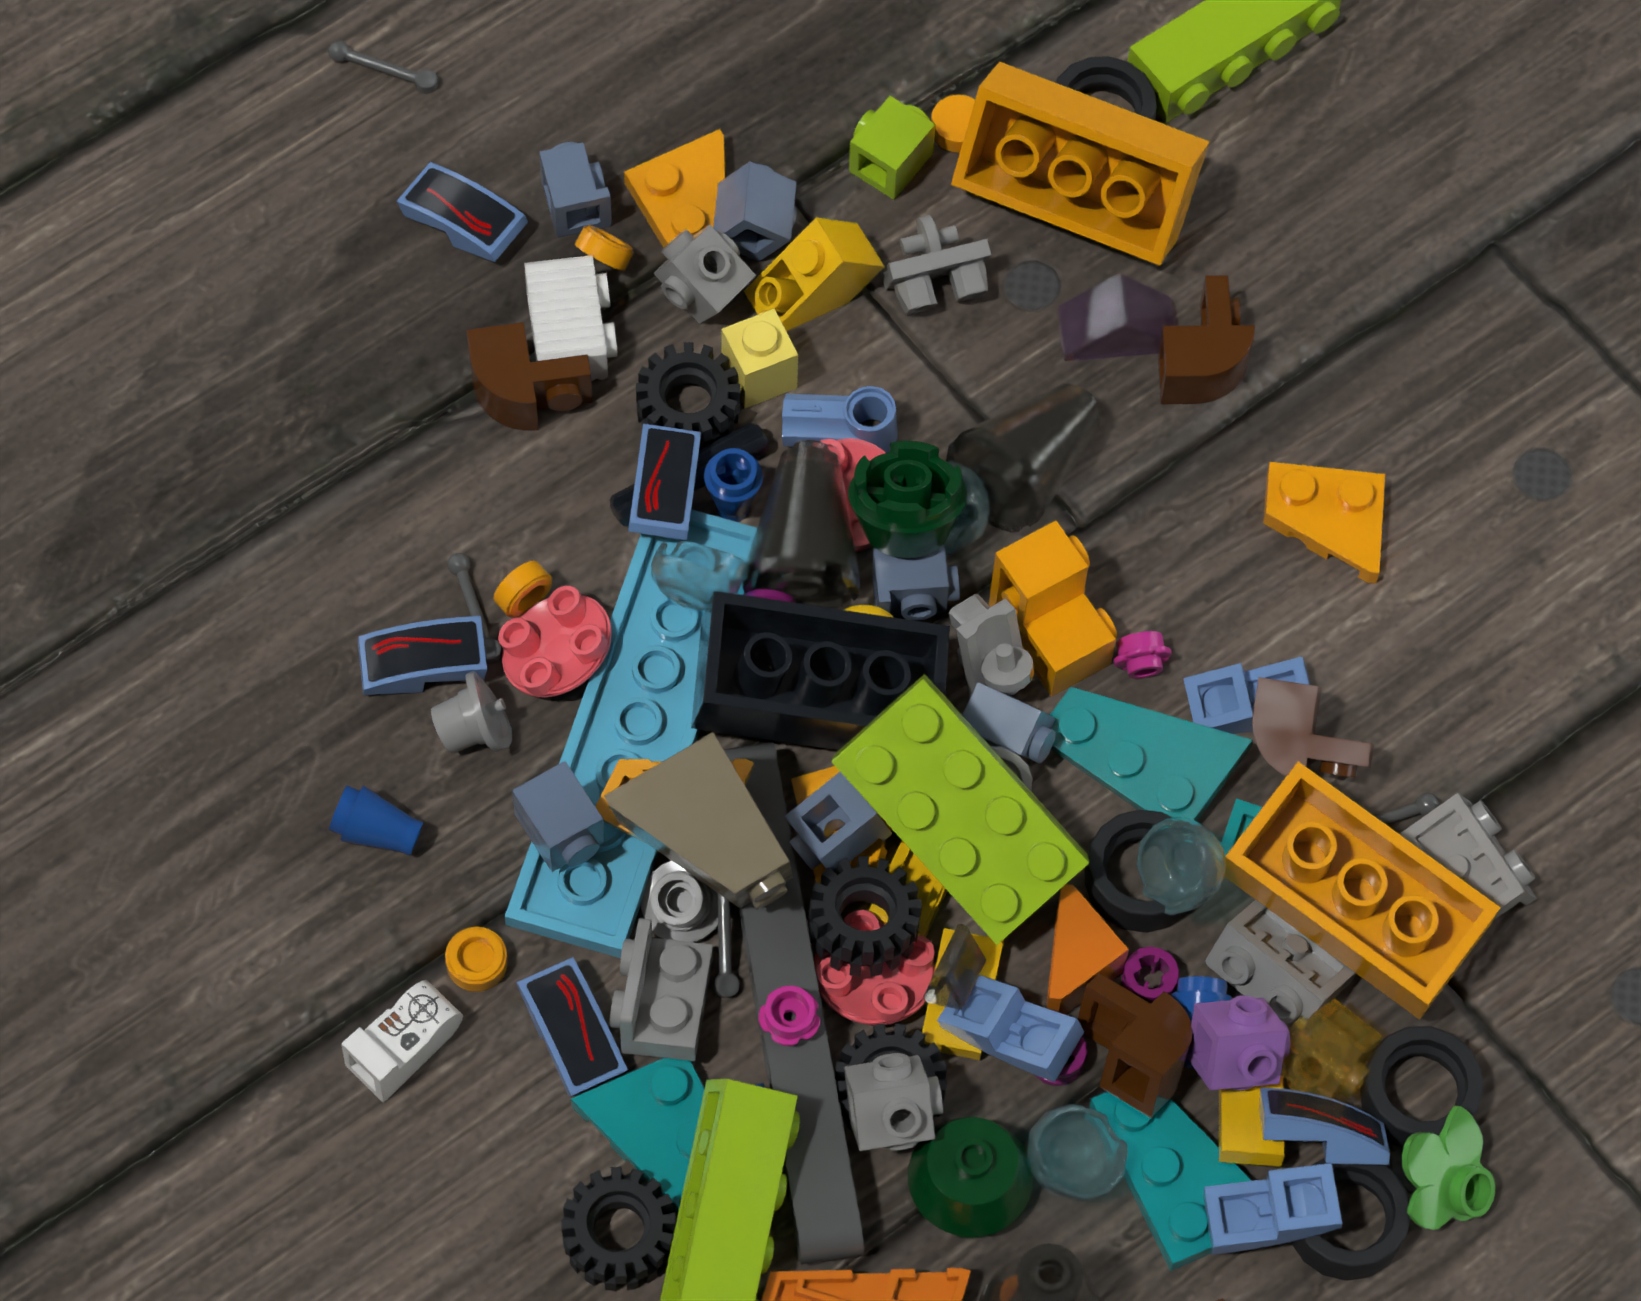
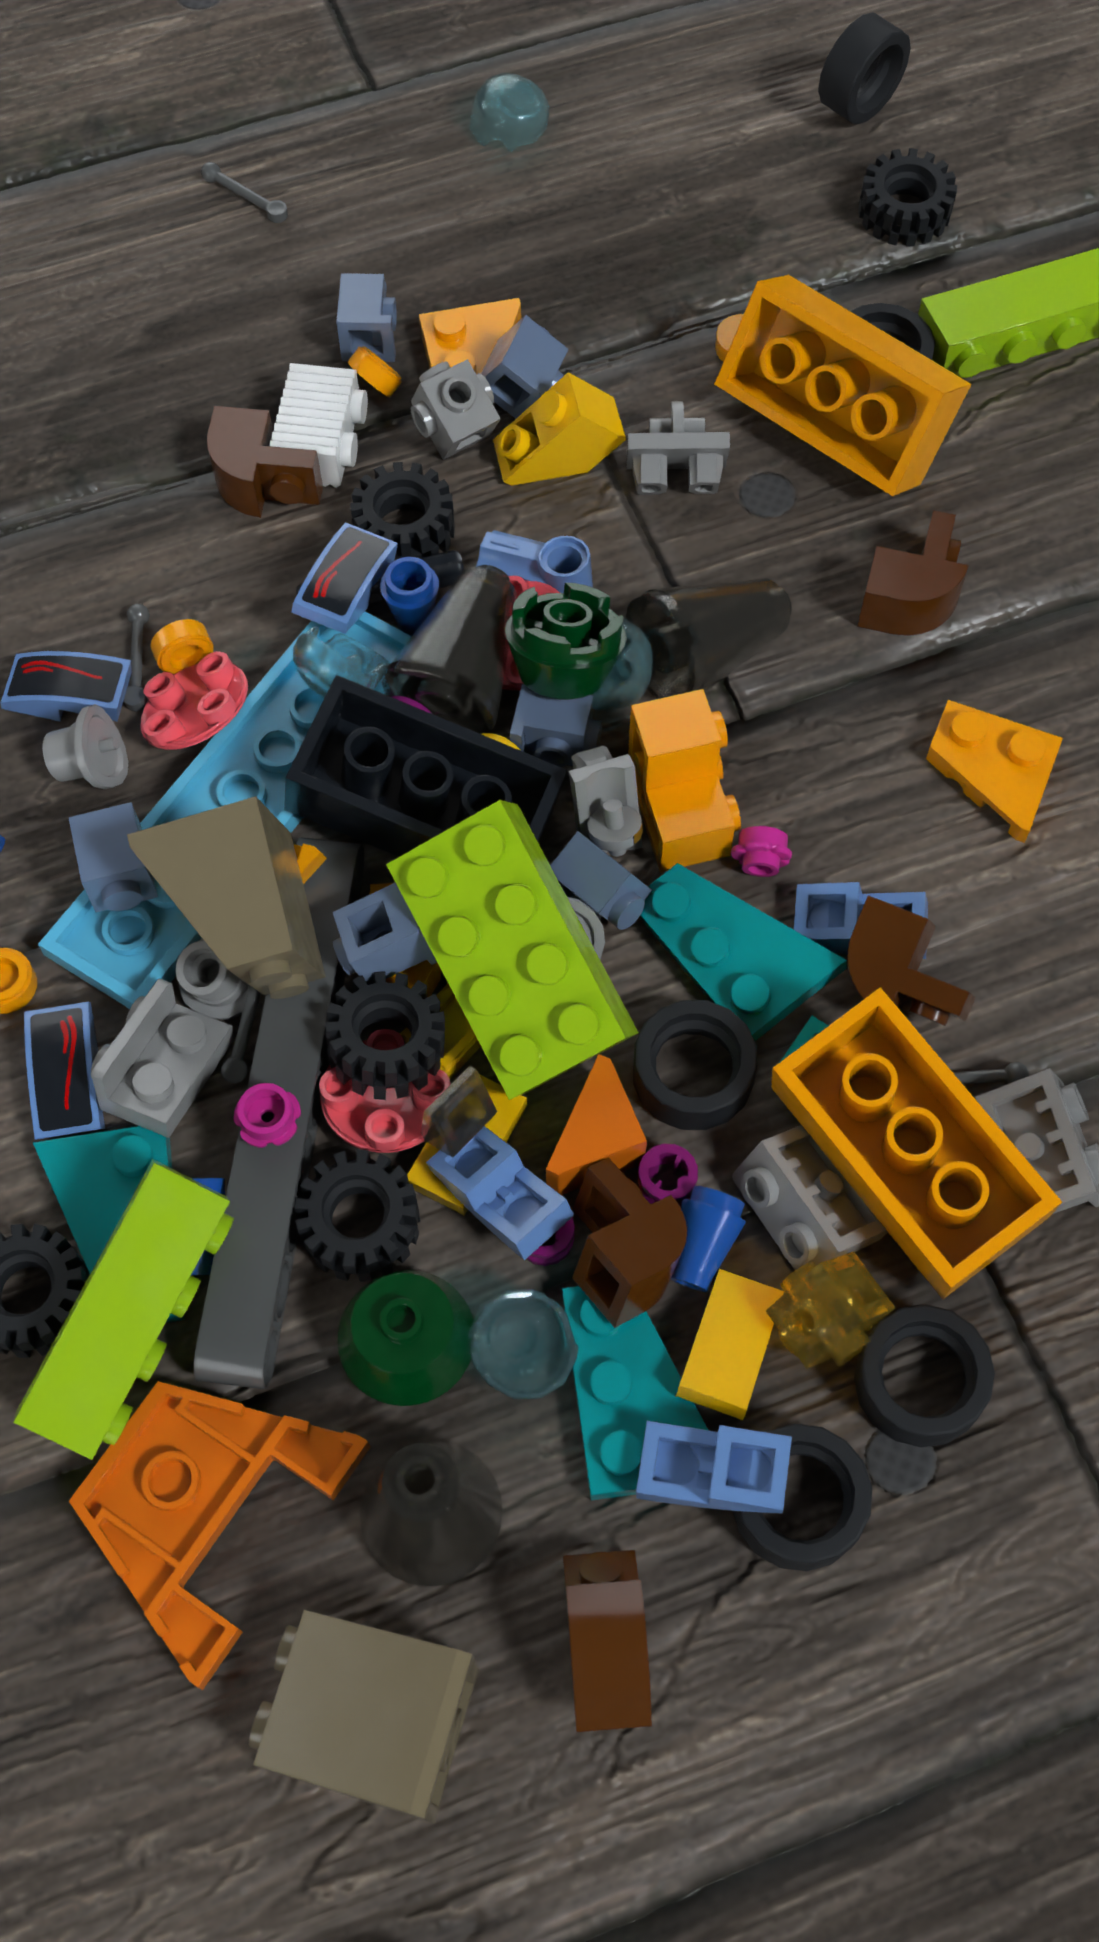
camera: 20 degrees right, 0 degrees up
(464, 210) = (263, 316): slope -> none
(761, 357) = (480, 492): light yellow brick -> none
(891, 146) = (671, 343): lime brick -> none
(892, 1102) = (332, 1235): light grey brick -> none
(1114, 320) = (834, 537): clear purple slope -> none
(1181, 864) = (726, 1065): clear light blue hair -> none
(1238, 1043) = (730, 1273): medium lavender brick -> none
(1345, 1131) = (822, 1401): medium blue slope -> none
(1448, 1172) = (924, 1481): bright green plate -> none

